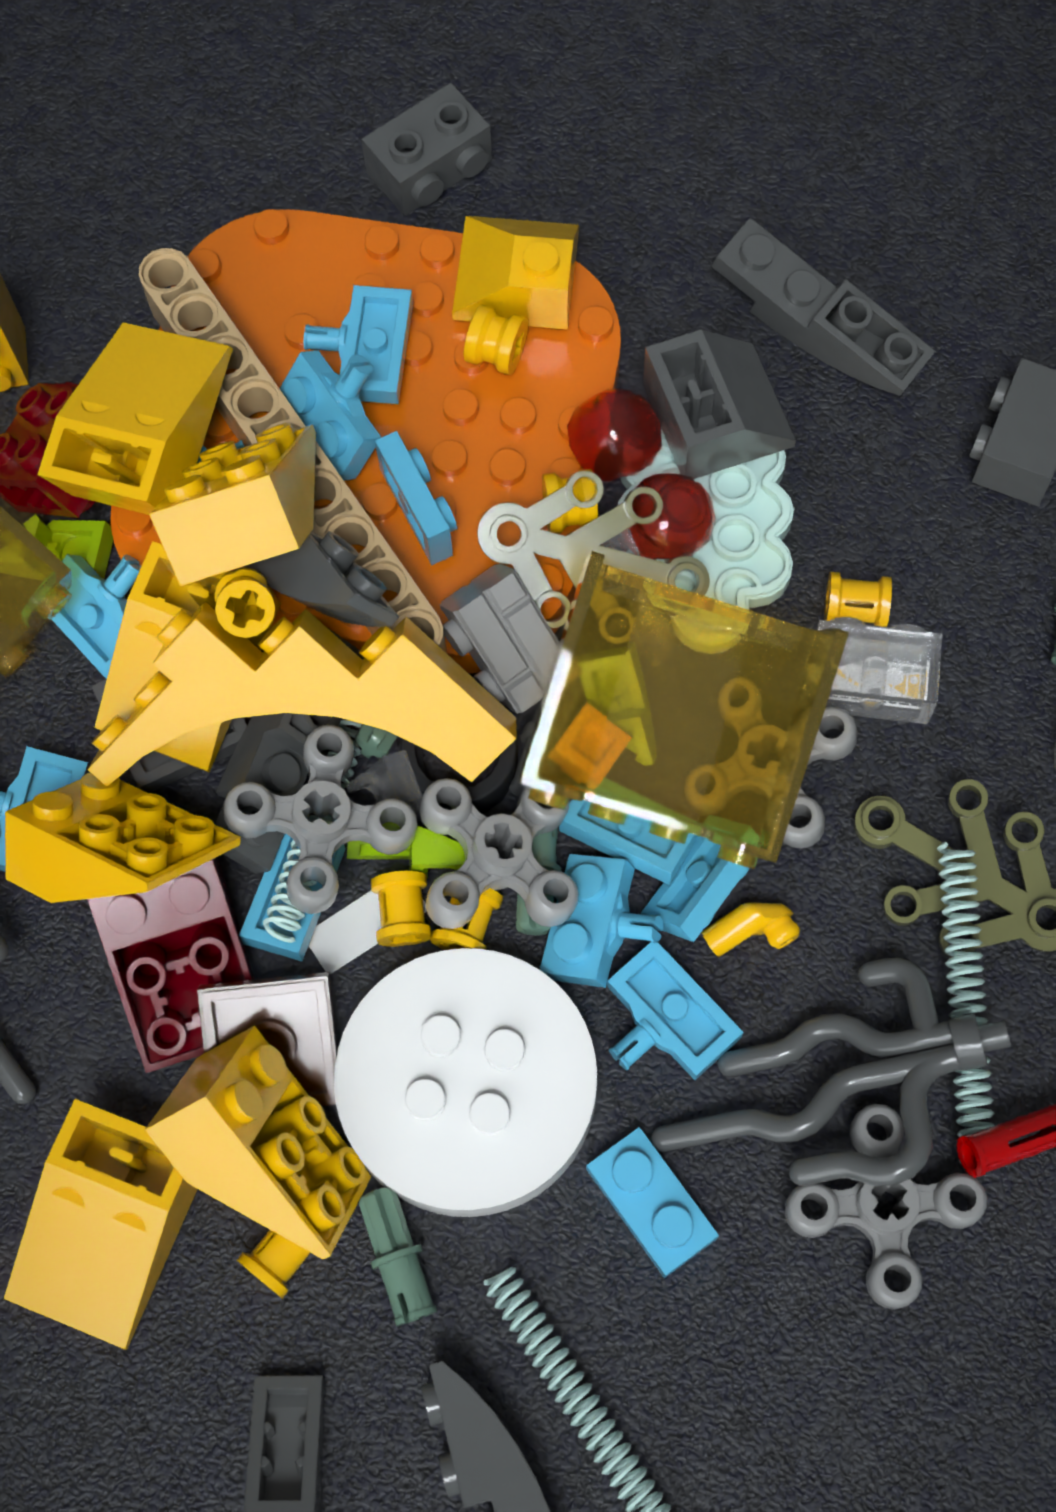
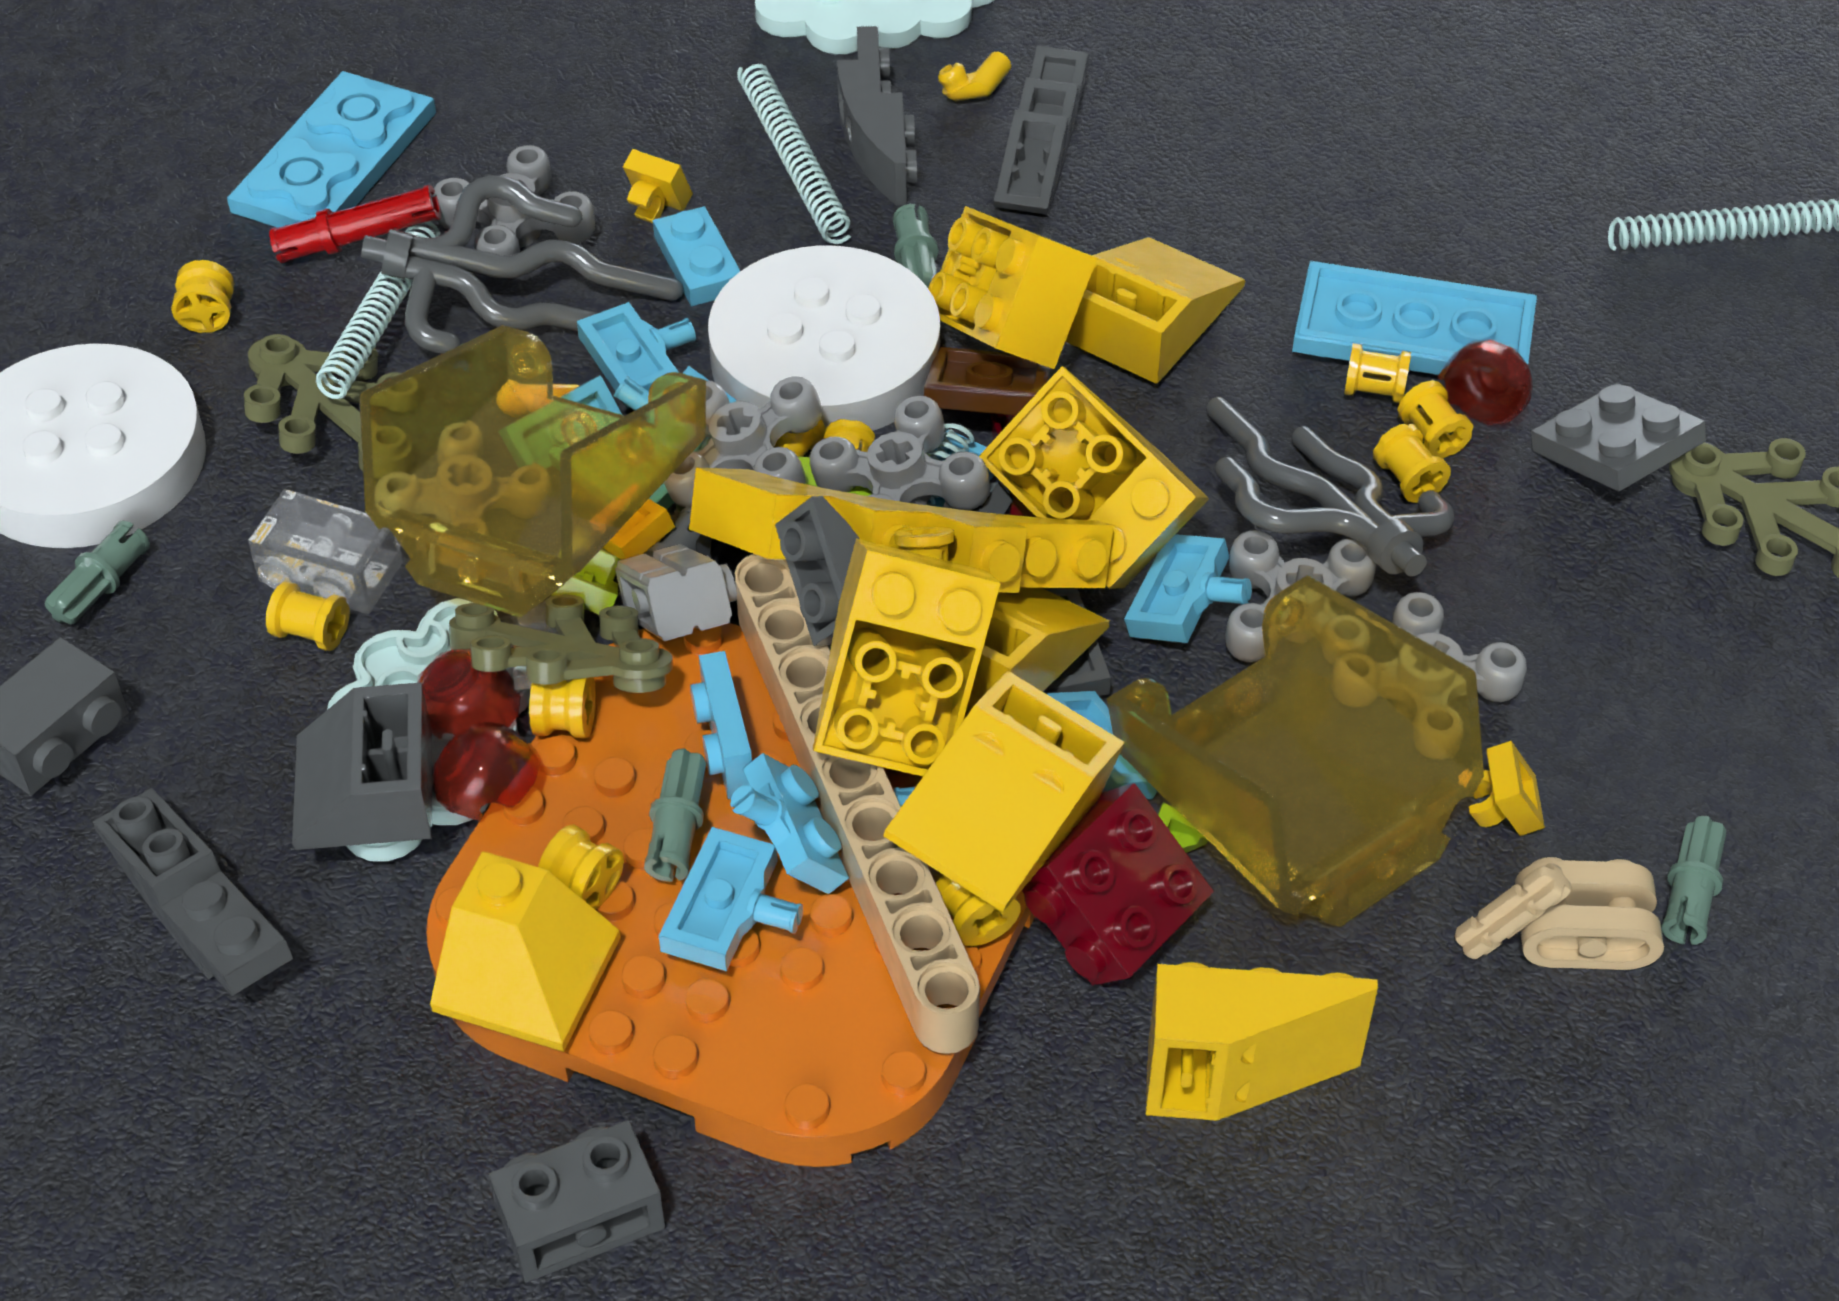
camera: 170 degrees left, 20 degrees down
(434, 411) = (676, 816): none -> sand green axle
(733, 1293) = (655, 185): none -> yellow tile

